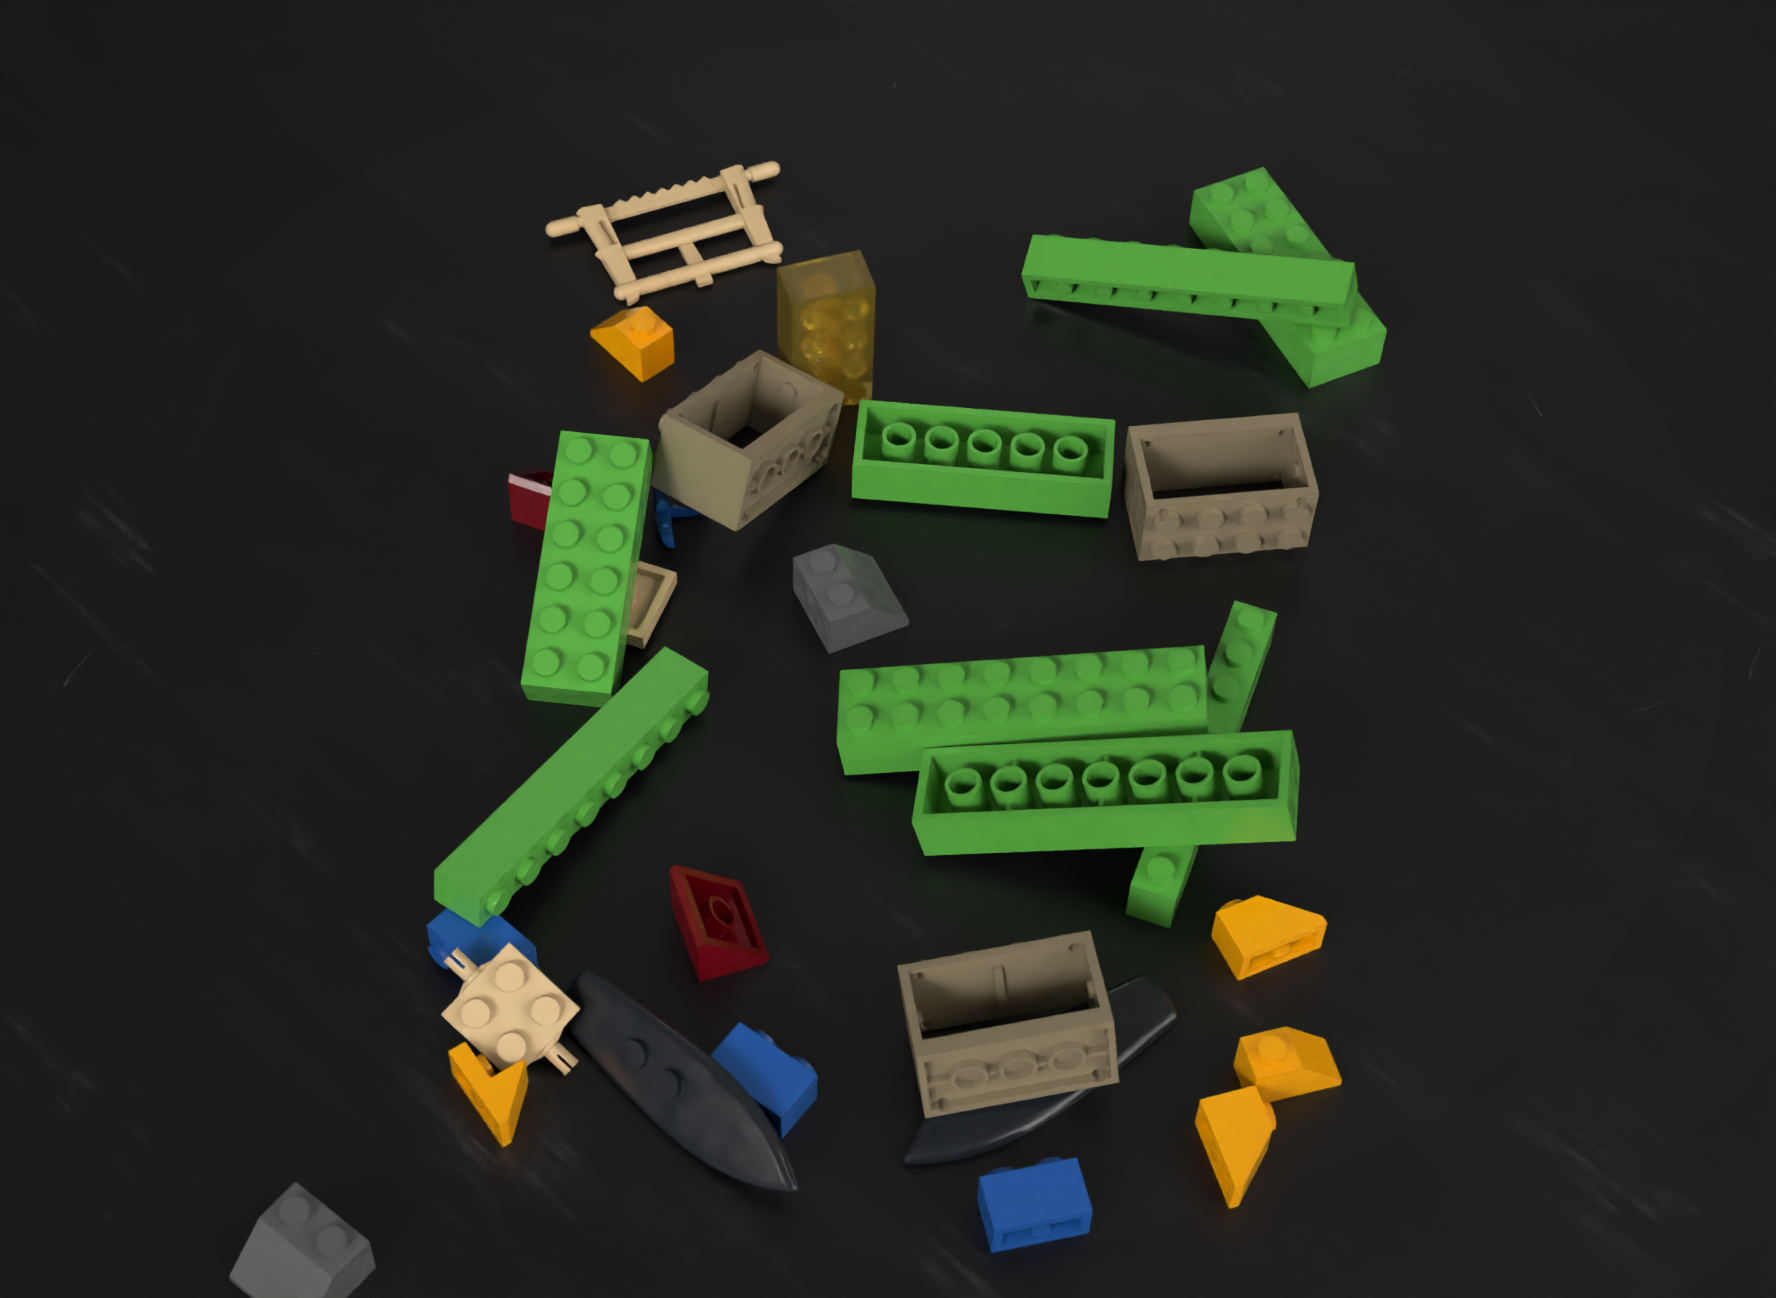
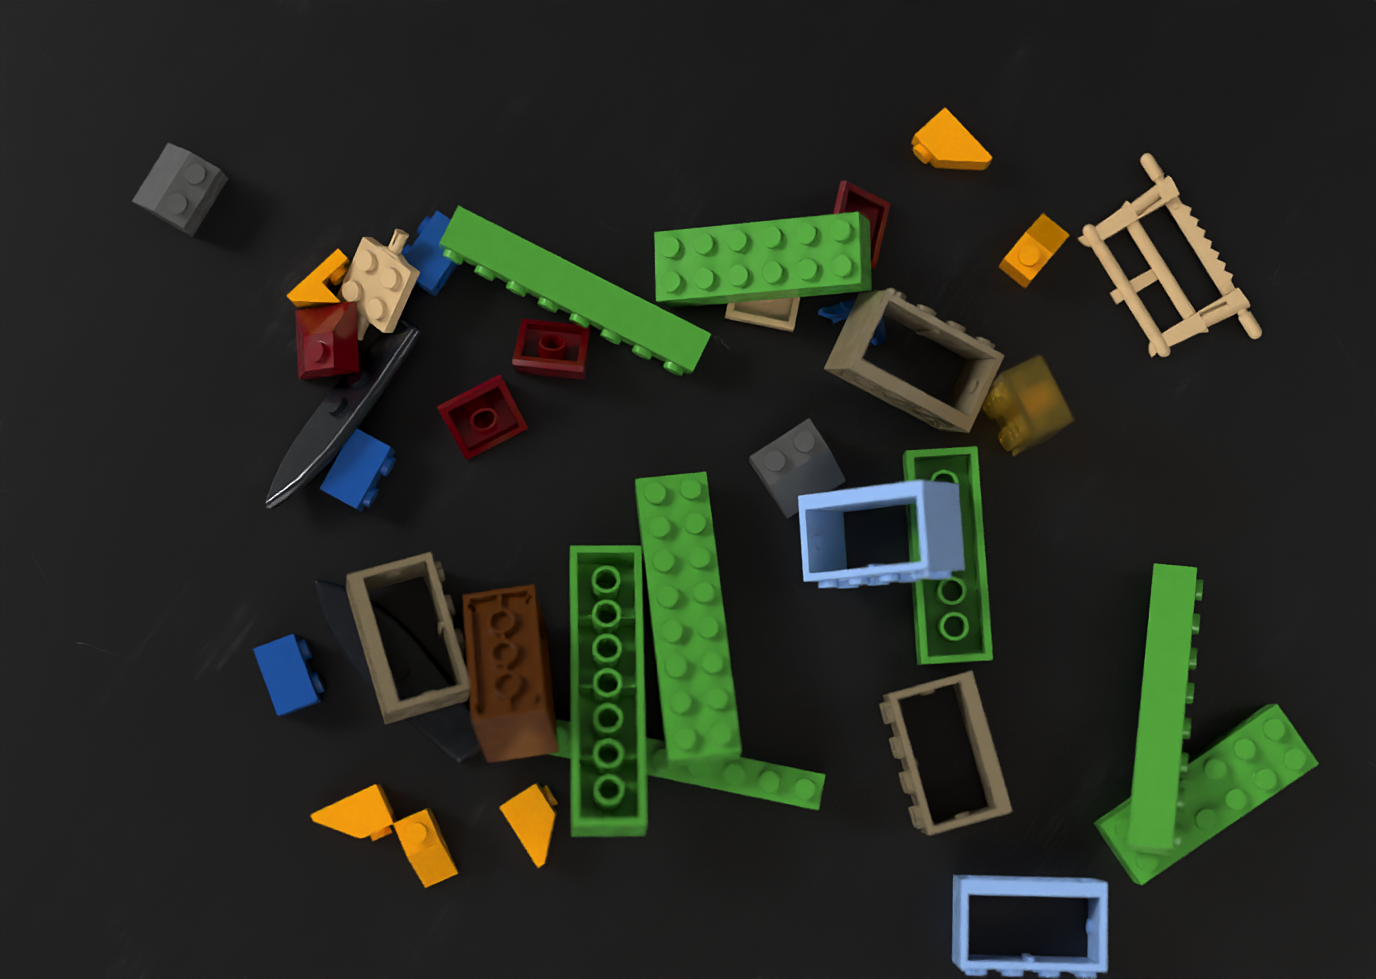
camera: 85 degrees right, 30 degrees up
(485, 395) = (949, 145): none -> light orange slope
(572, 1094) = (327, 340): none -> dark red slope
(645, 832) = (552, 349): none -> dark red slope
(907, 482) = (825, 536): none -> light blue hose
(1077, 878) = (510, 673): none -> reddish brown hose
(1421, 498) = (1031, 886): none -> light blue hose

